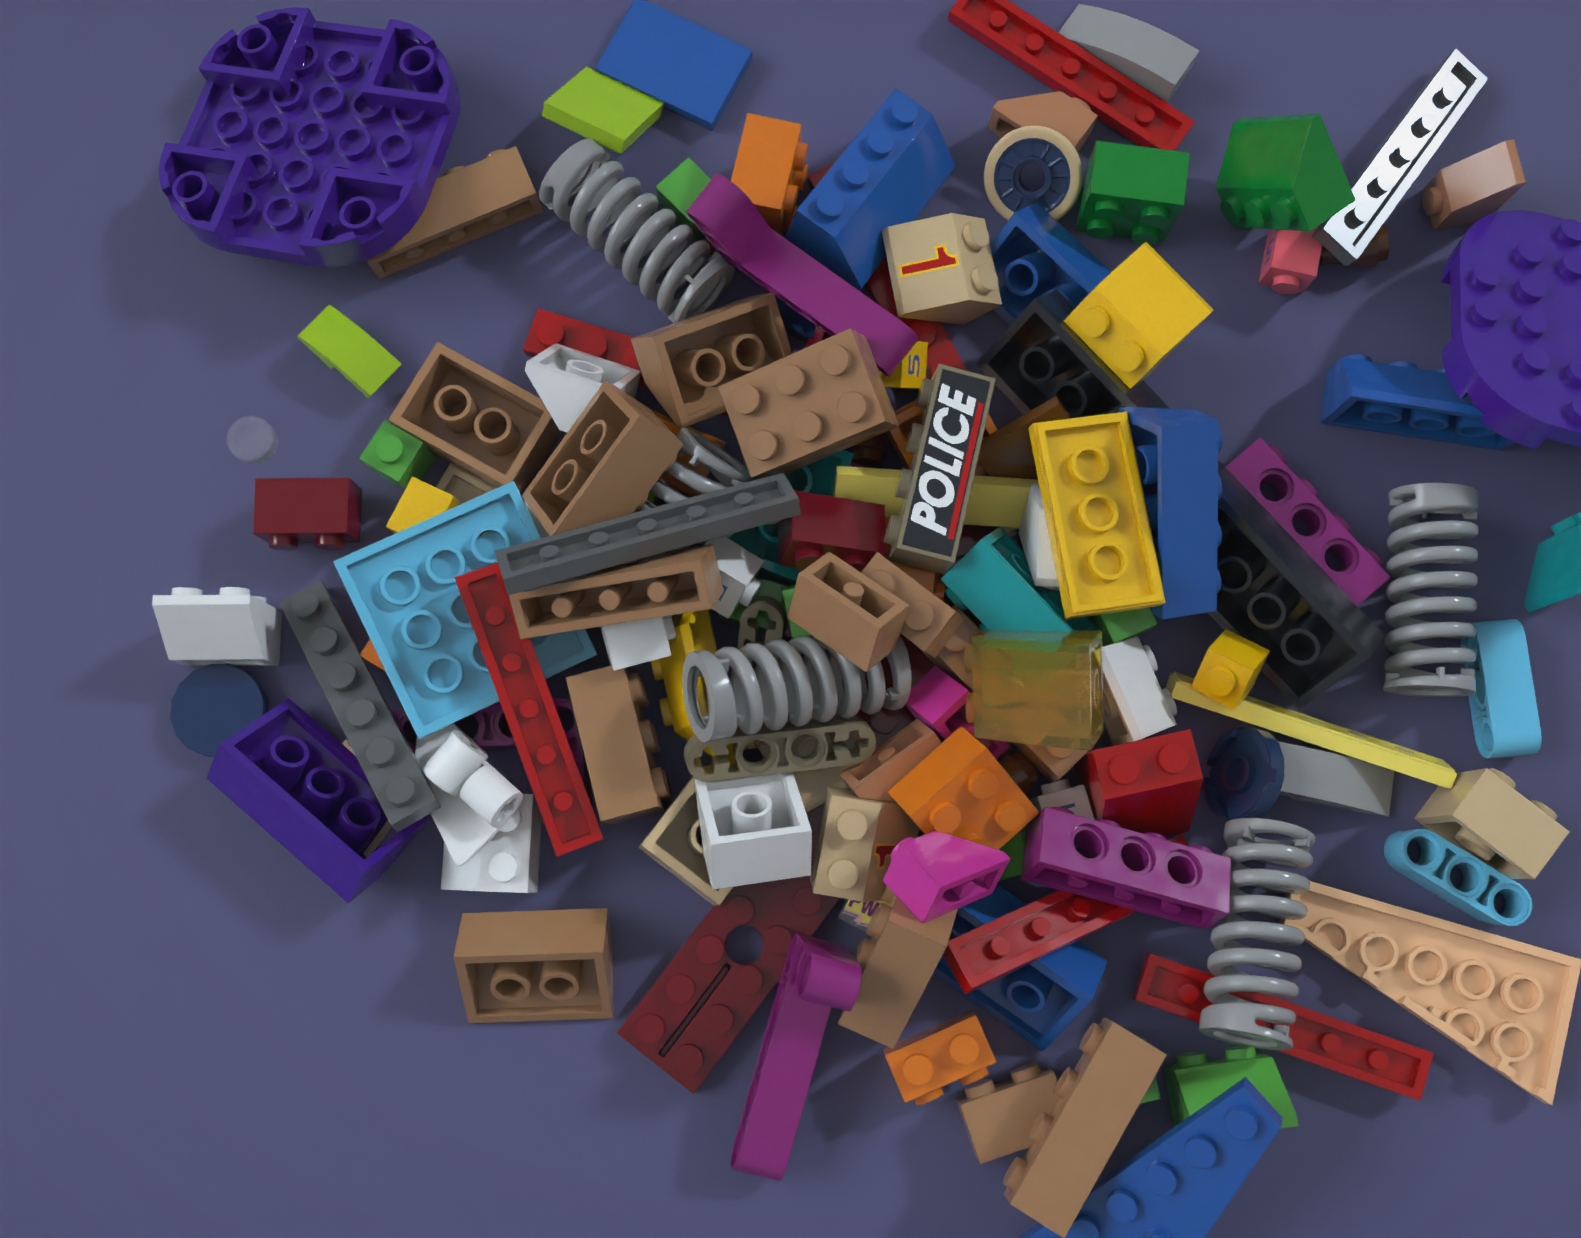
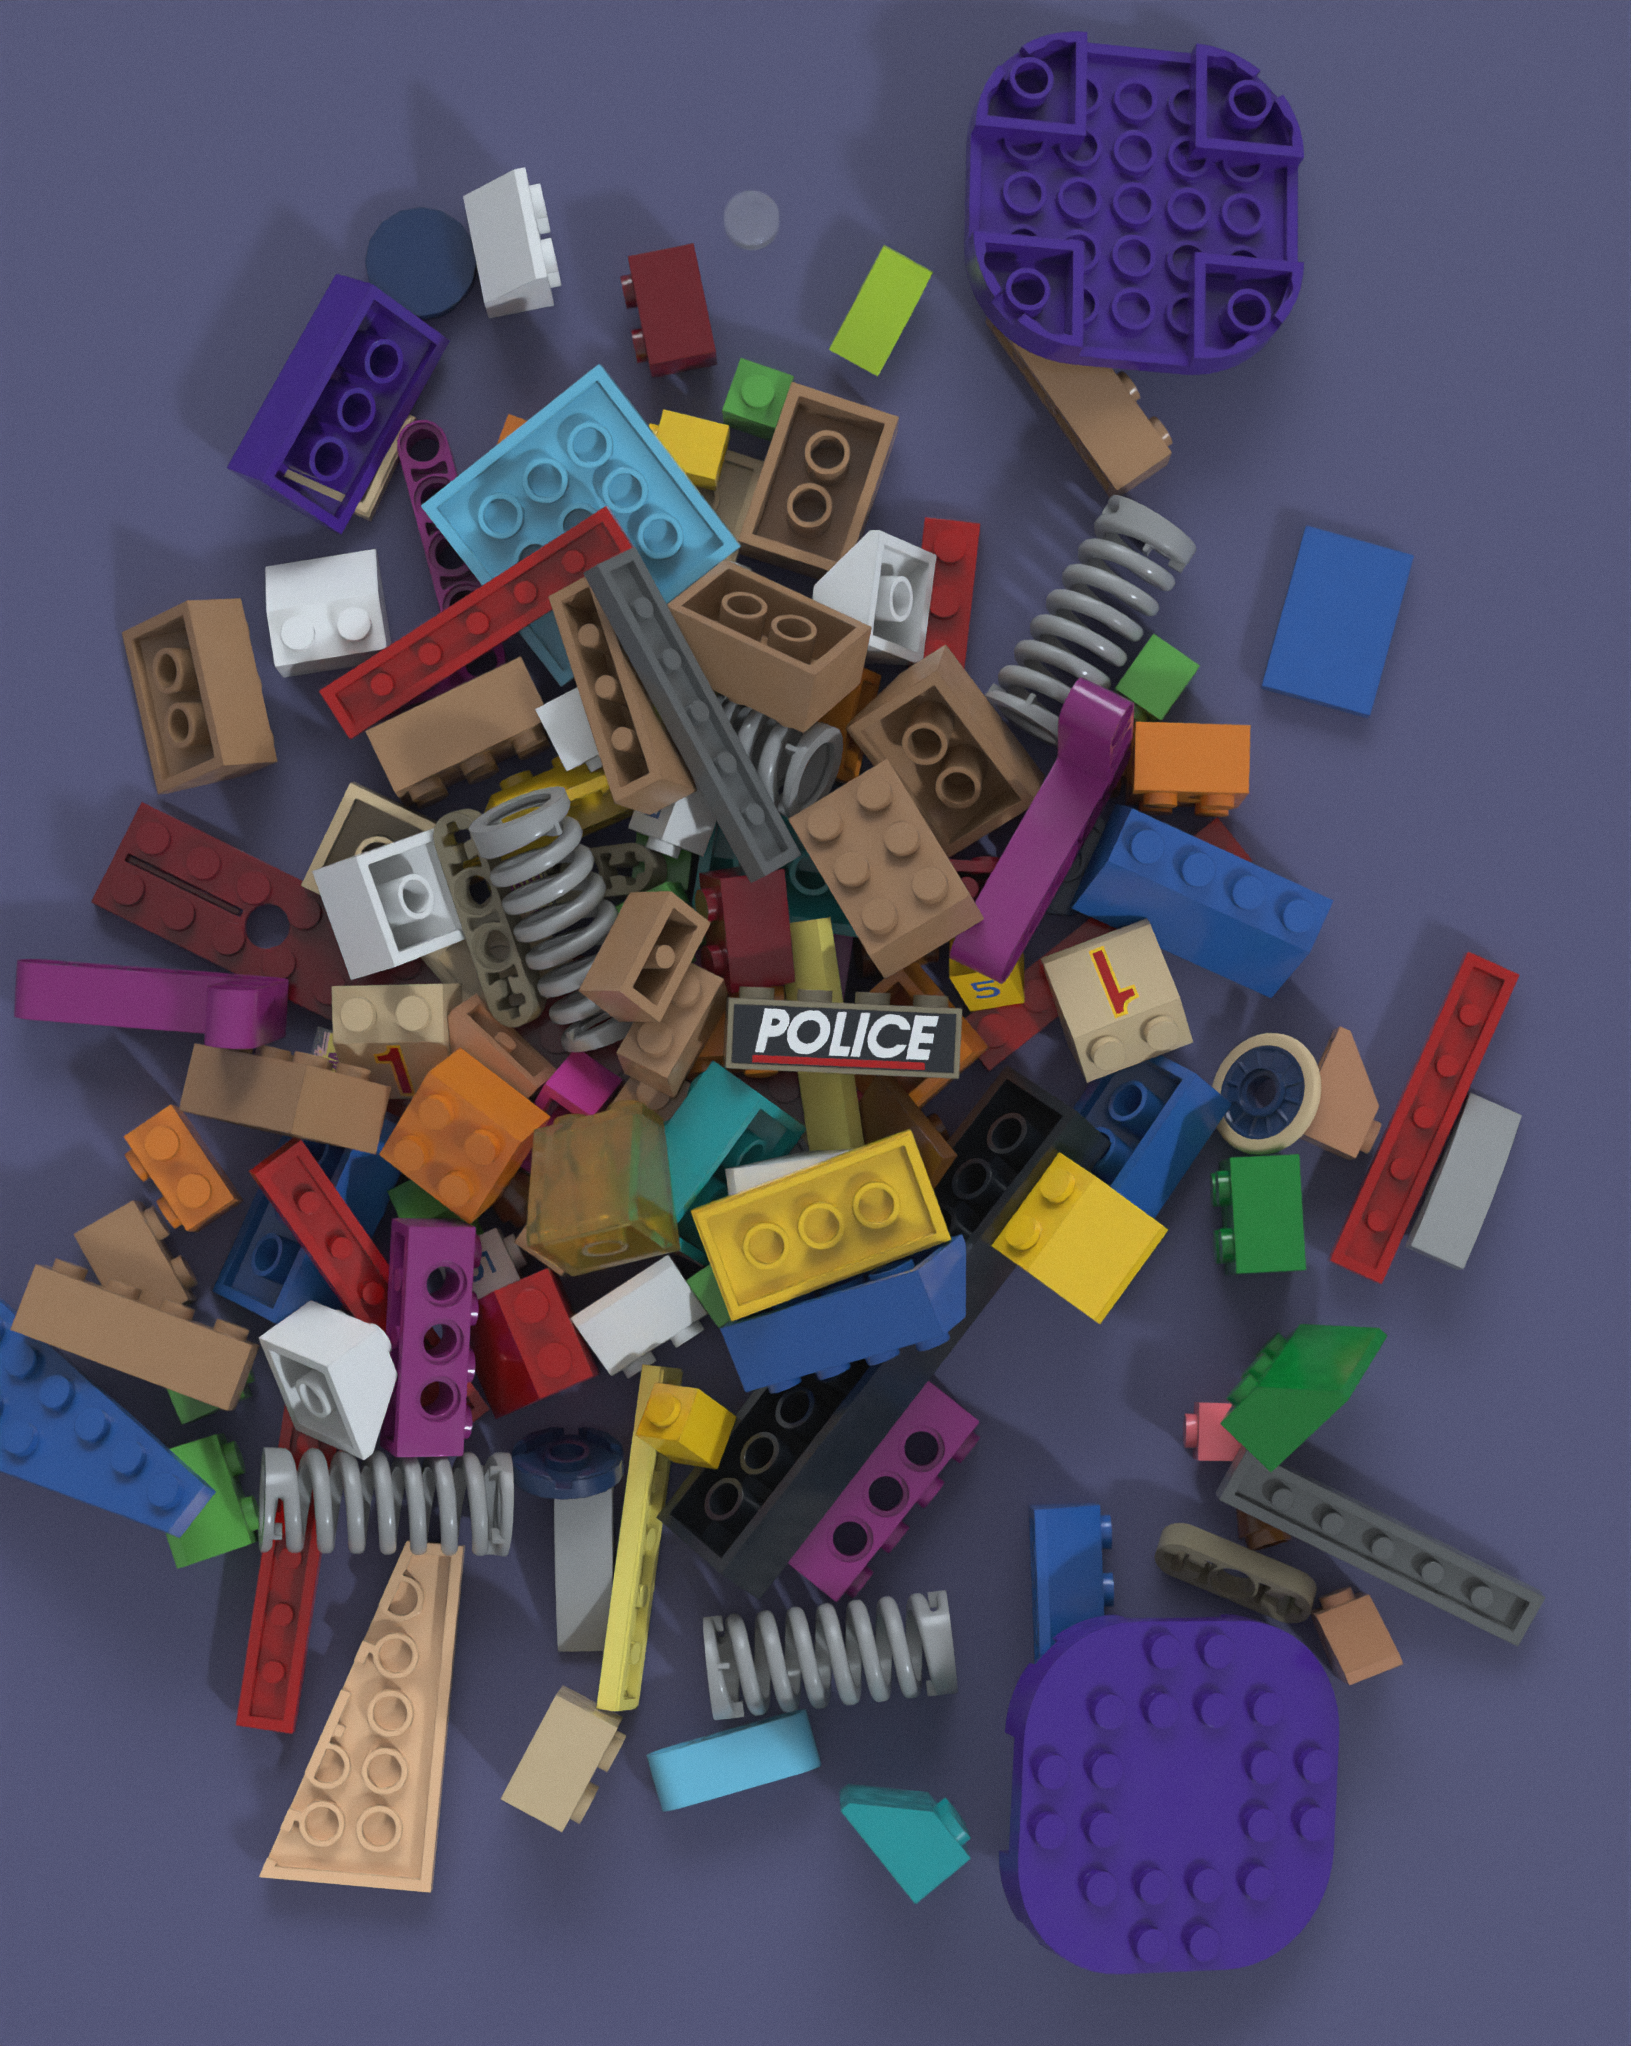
camera: 75 degrees right, 5 degrees up
(360, 706) = (453, 425): dark grey plate -> none
(470, 790) = (373, 568): white panel -> none
(602, 109) = (1246, 548): lime tile -> none
(942, 873) = (374, 1121): dark pink slope -> none
(1147, 955) = (332, 1375): none -> white slope
(1402, 271) = (1287, 1590): none -> dark tan beam
(1479, 879) = (479, 1756): medium azure beam -> none

